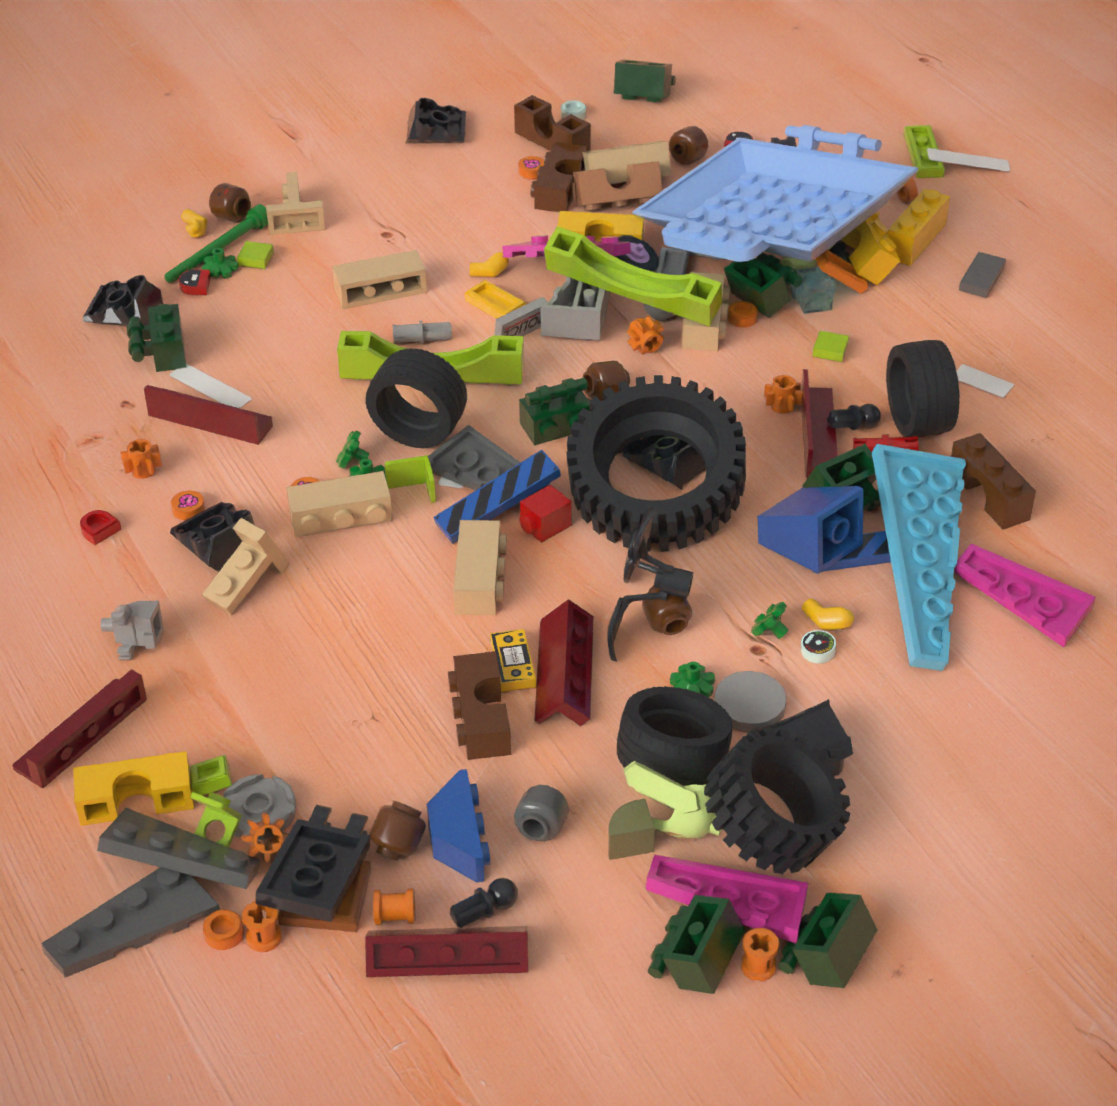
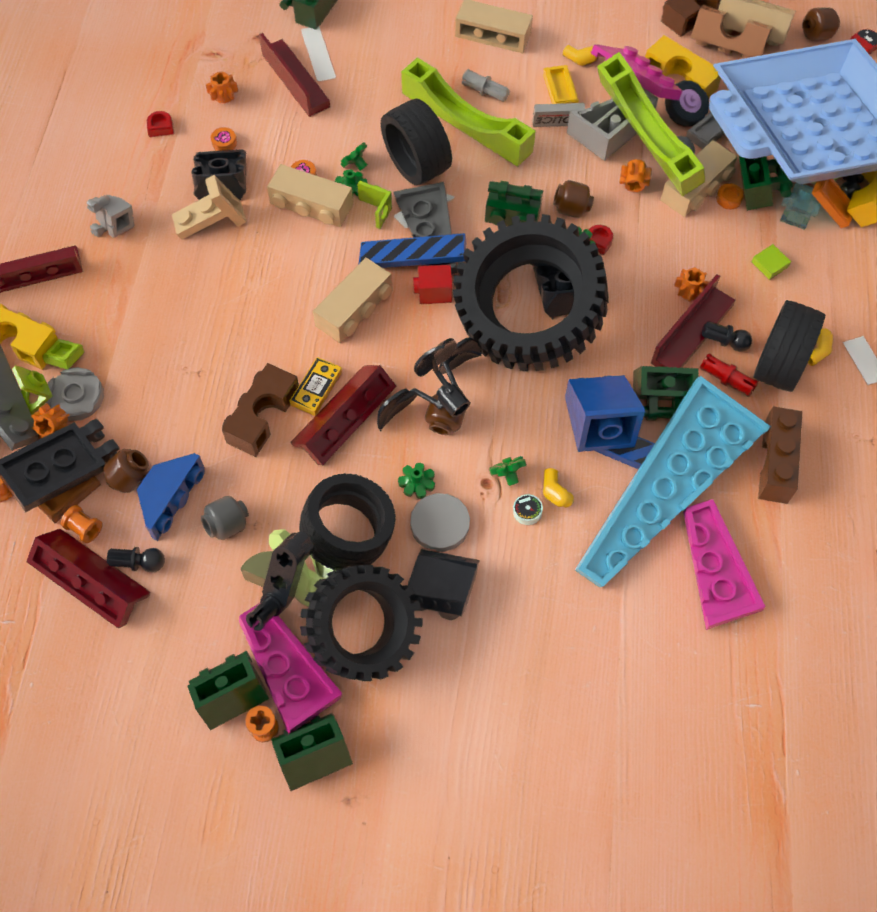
camera: 35 degrees right, 20 degrees up
(671, 828) = (281, 578): none -> black beam

